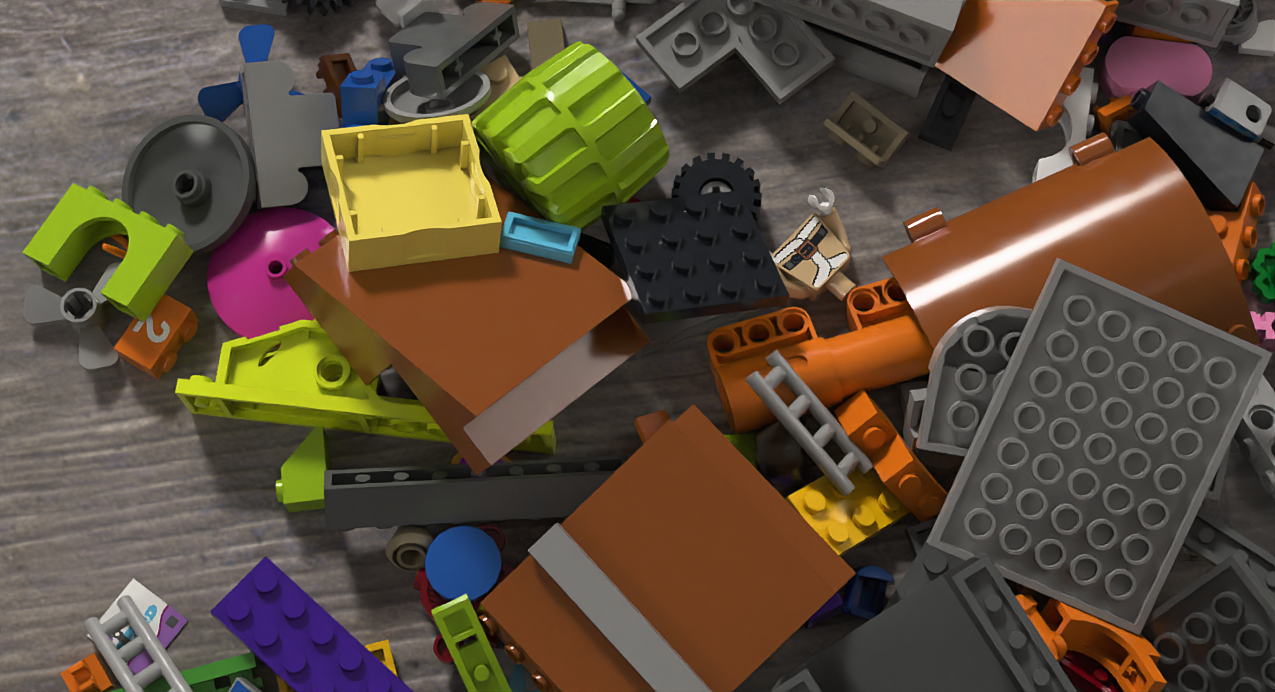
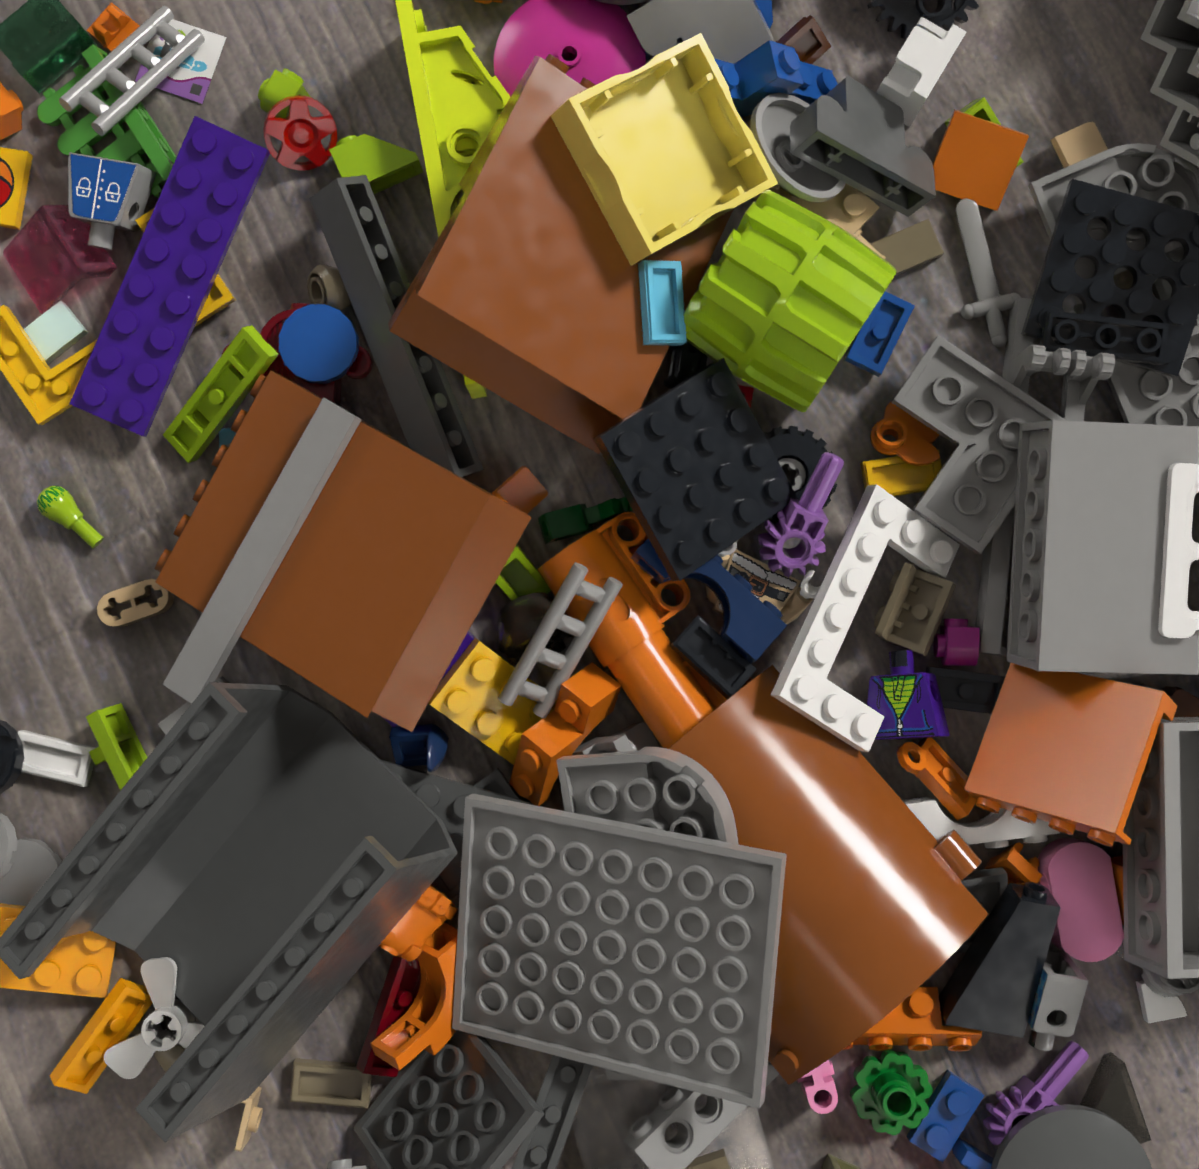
camera: 70 degrees right, 15 degrees up
(213, 536) = (280, 87): none -> lime plate
(255, 528) = (300, 133): none -> red wheel
(698, 388) = (579, 519): none -> dark green piece
(710, 90) = (912, 437): none -> orange plate
(743, 109) = (897, 476): none -> yellow tile
(763, 191) = (802, 520): none -> medium lavender gear
(786, 134) = (803, 682): none -> white plate
(838, 262) = (746, 620): none -> dark blue arch
(861, 300) = (713, 657): none -> black plate
(906, 104) = (957, 643): none -> magenta plate
(946, 160) = (907, 701): none -> torso
(1017, 152) = (938, 774): none -> orange hinge

